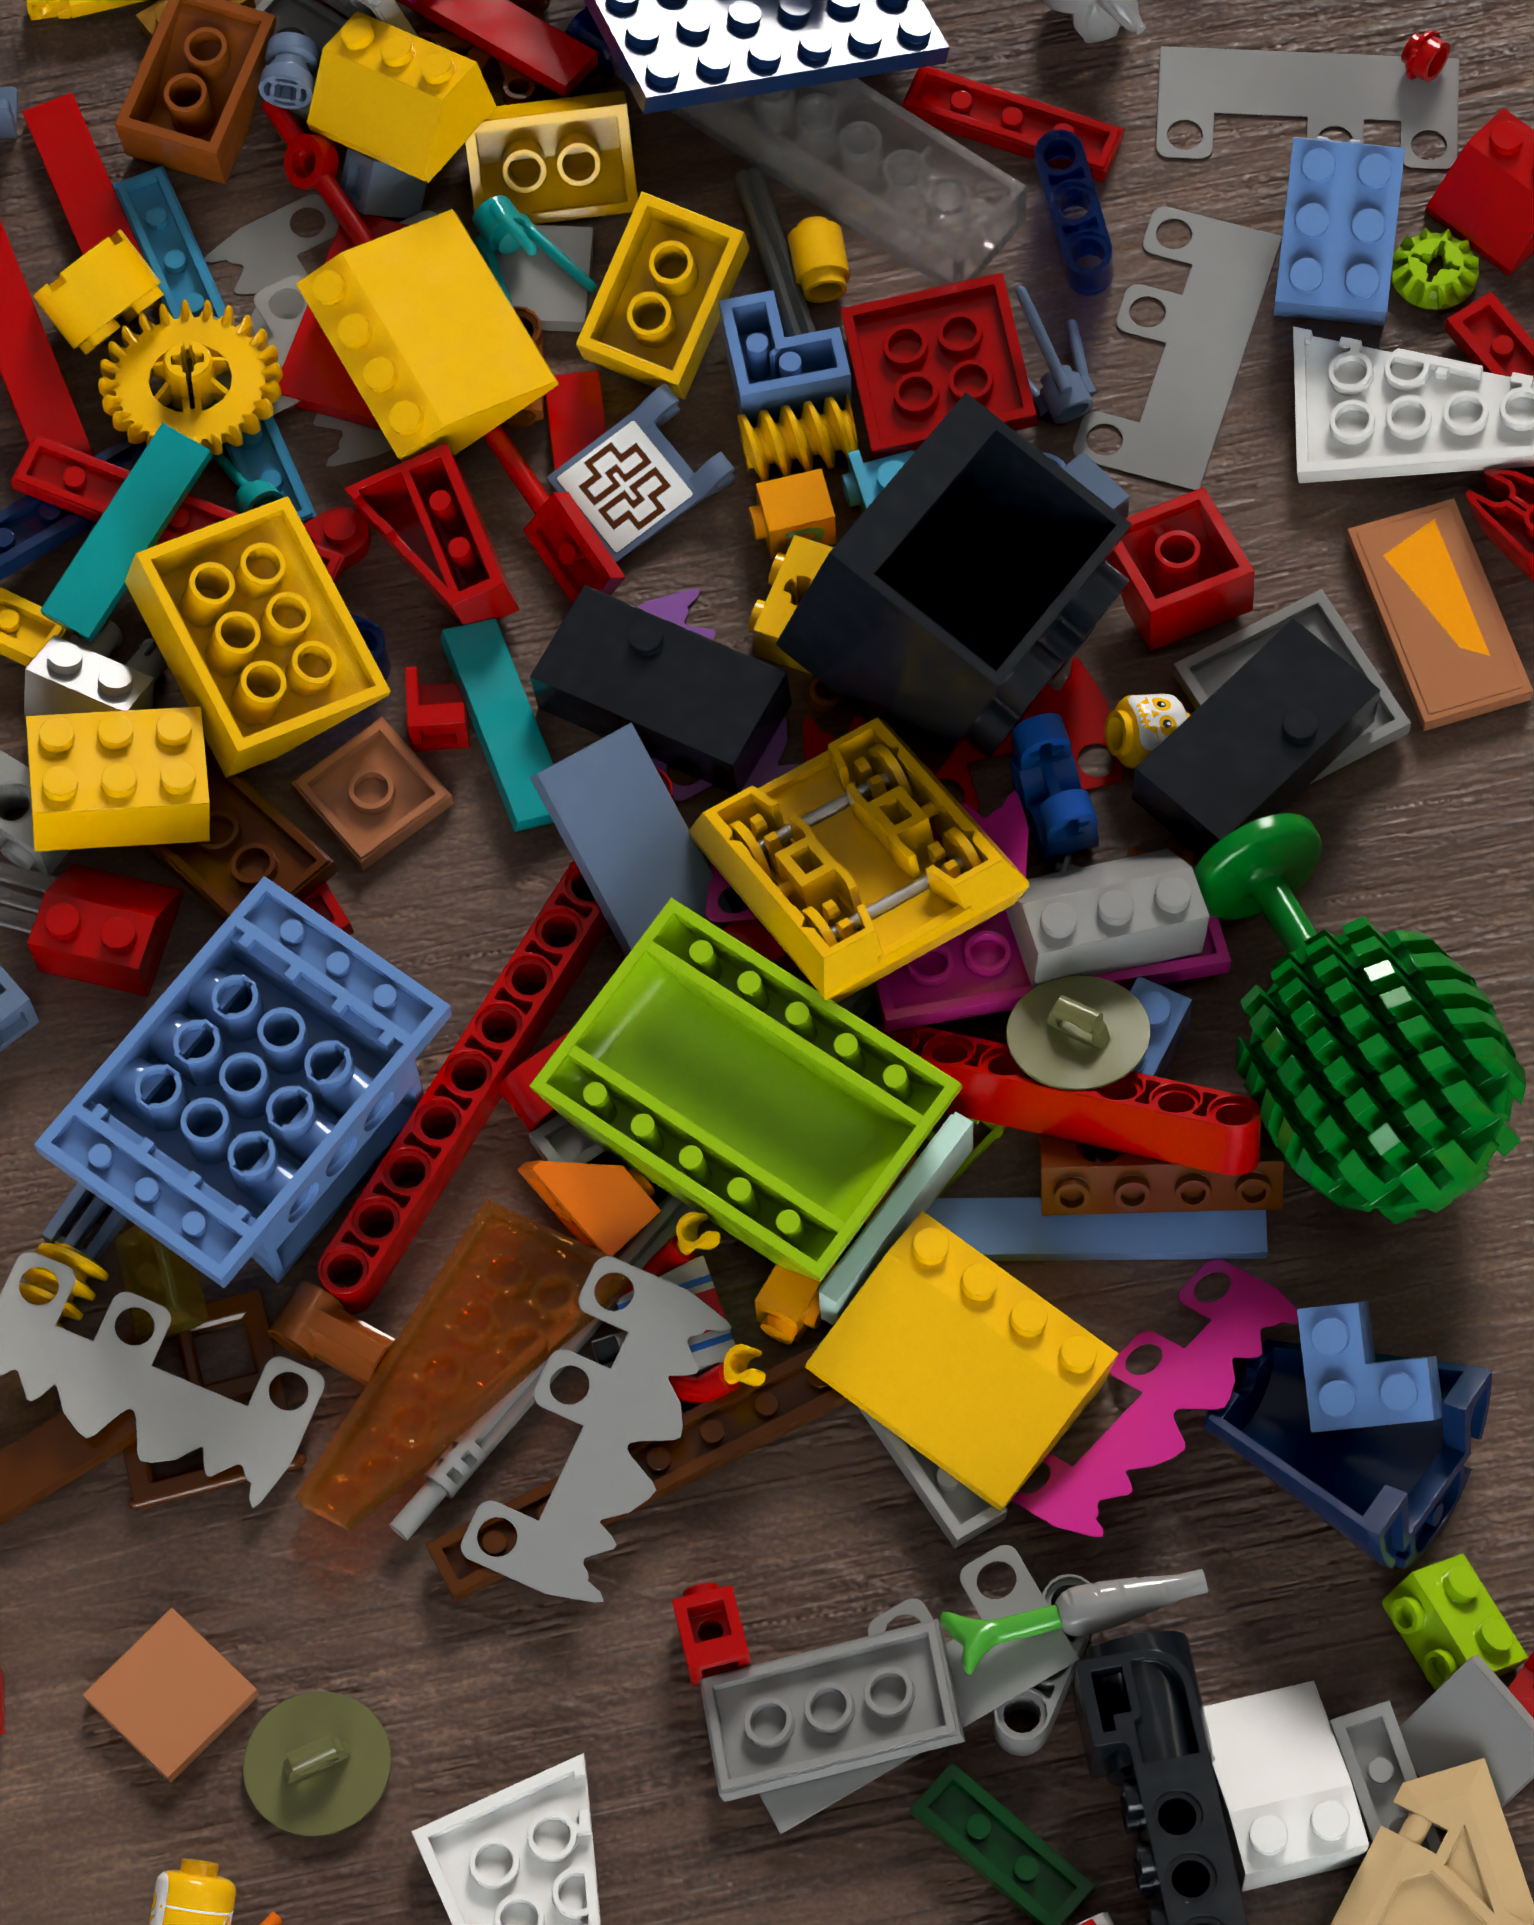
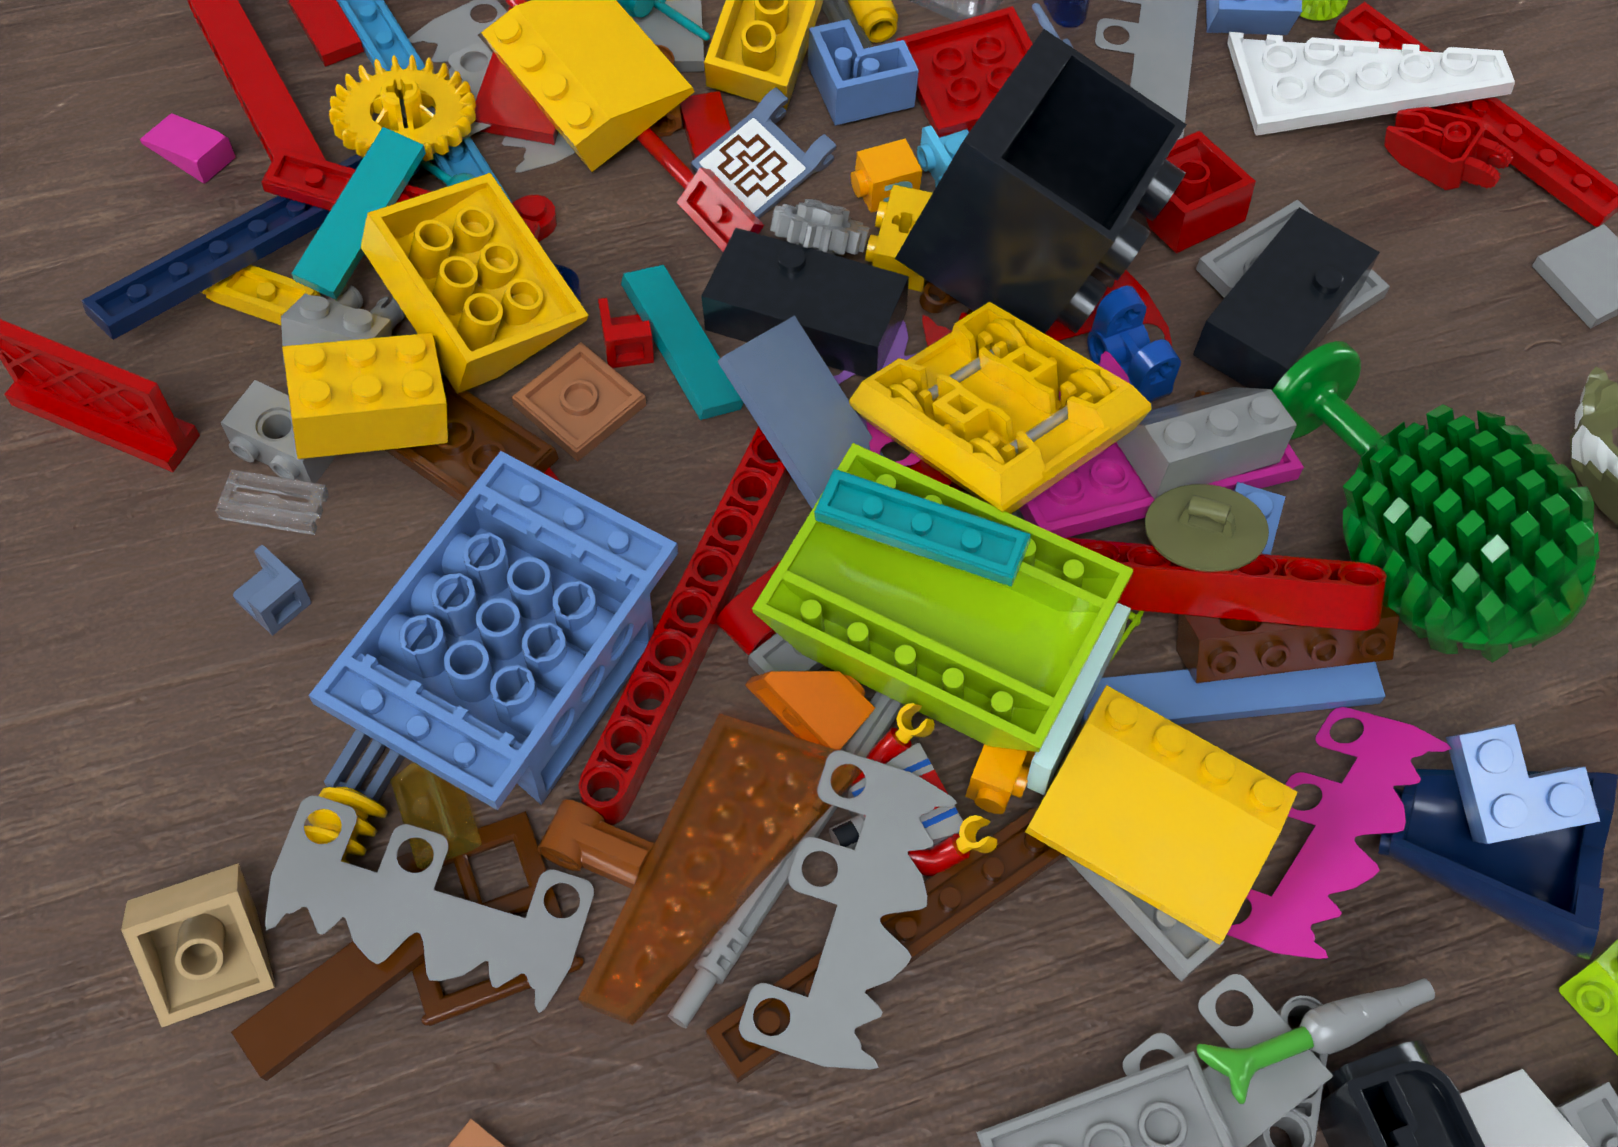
camera: 15 degrees left, 5 degrees down
(99, 289) = (324, 51): yellow brick -> none
(104, 929) = (361, 523): red slope -> none
(438, 533) = (610, 204): red wedge -> none
(692, 589) = (820, 227): none -> light grey gear
(705, 1607) = (989, 1064): red brick -> none
(731, 1010) = (922, 527): none -> teal tile
(798, 438) = (879, 121): yellow piece -> none
(1141, 725) = (1188, 304): head -> none
(1439, 614) = (1385, 211): nougat tile -> none

